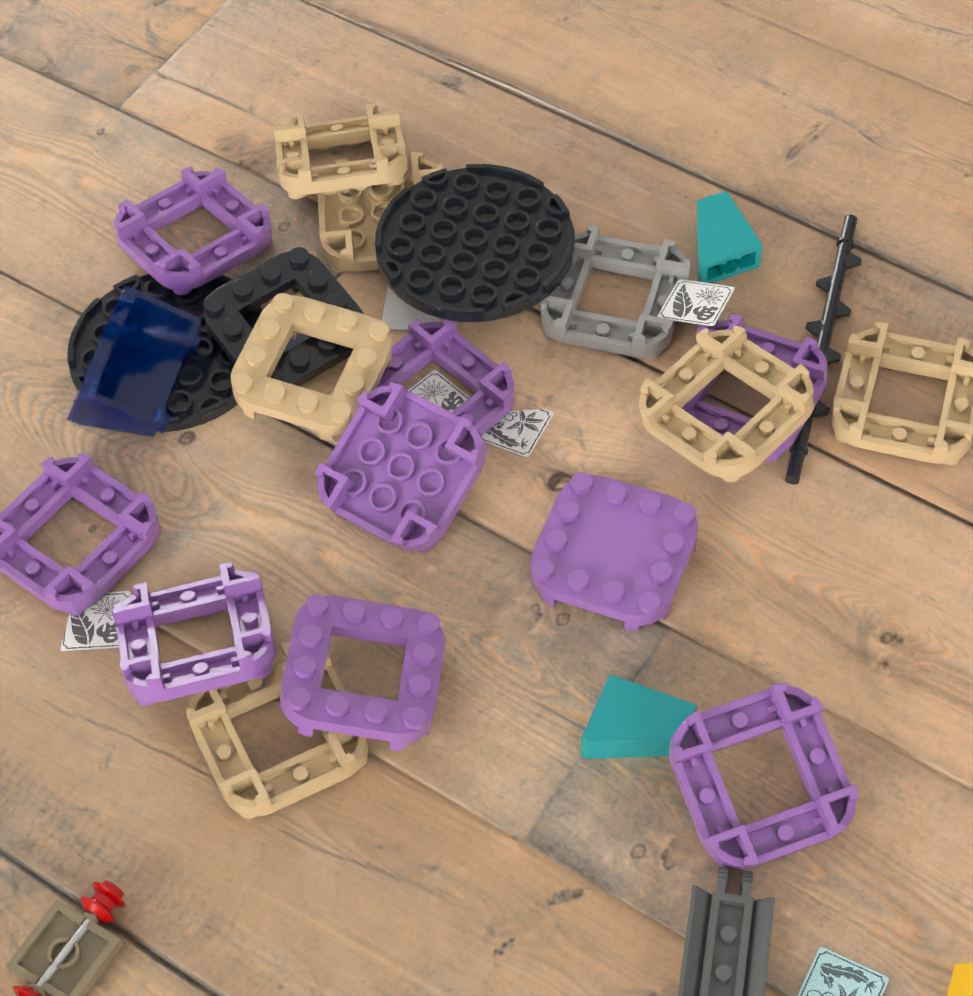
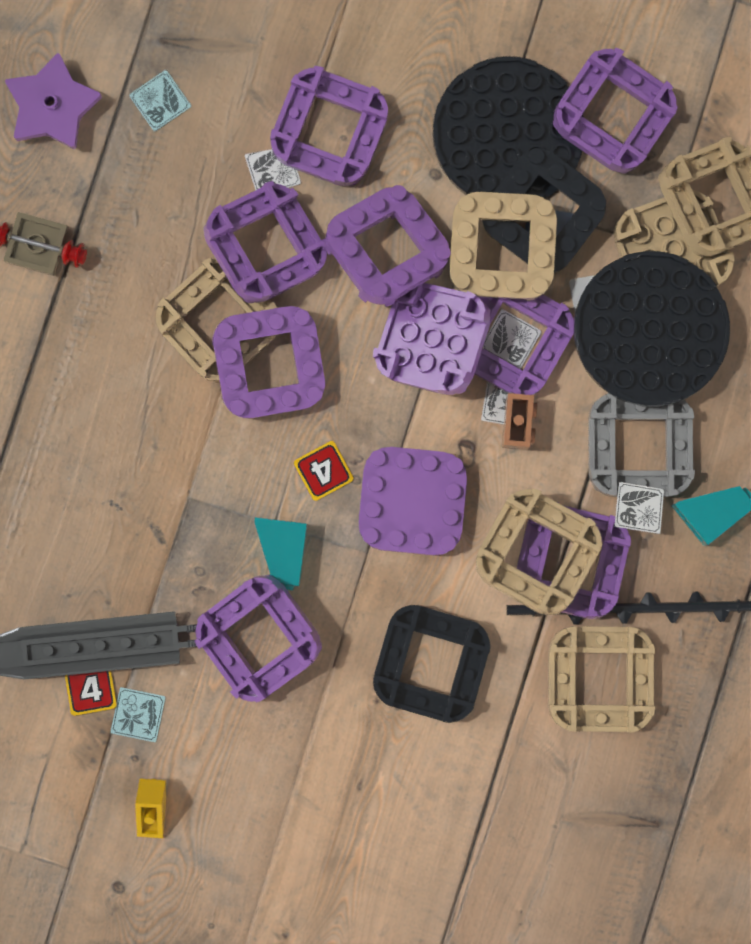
camera: 70 degrees right, 30 degrees up
(135, 366) = (468, 118): clear blue windscreen -> none
(204, 491) = (387, 203): none -> medium lavender plate
(538, 655) = (323, 470): none -> sticker
(544, 404) = (518, 421): none -> nougat brick
(854, 636) = (468, 673): none -> black plate

